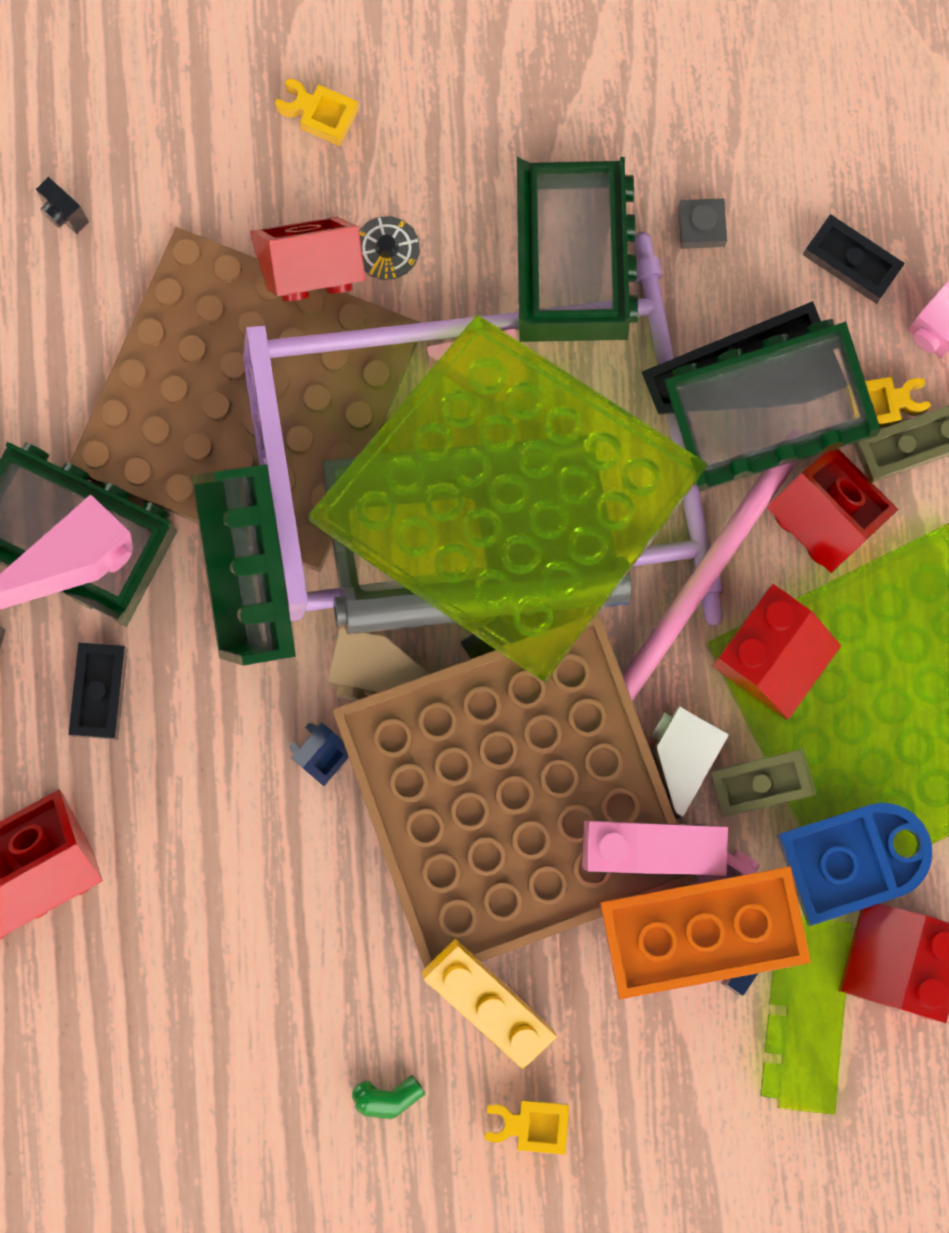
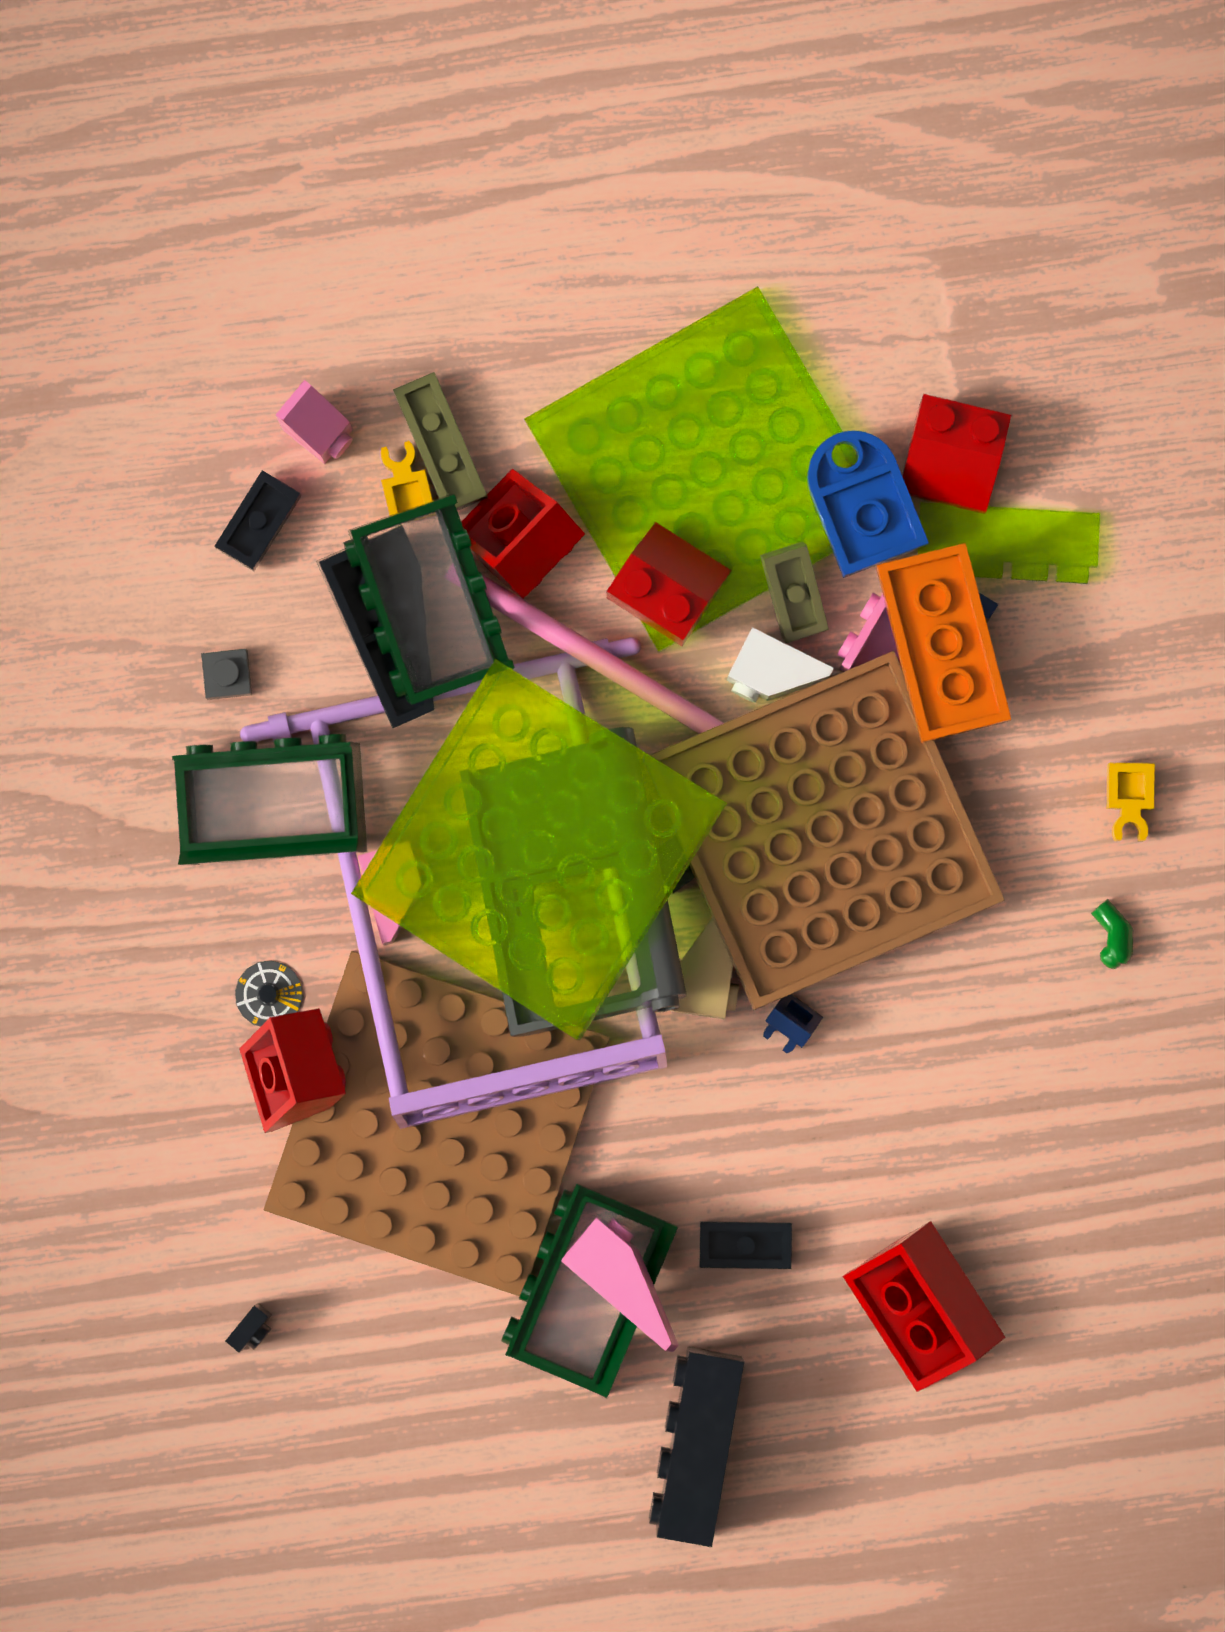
camera: 90 degrees left, 5 degrees up
(243, 565) = (622, 1104): dark green window -> none
(323, 113) = (132, 1066): yellow plate -> none
(488, 1004) = (1021, 843): yellow plate -> none
(654, 848) = (868, 694): bright pink slope -> none

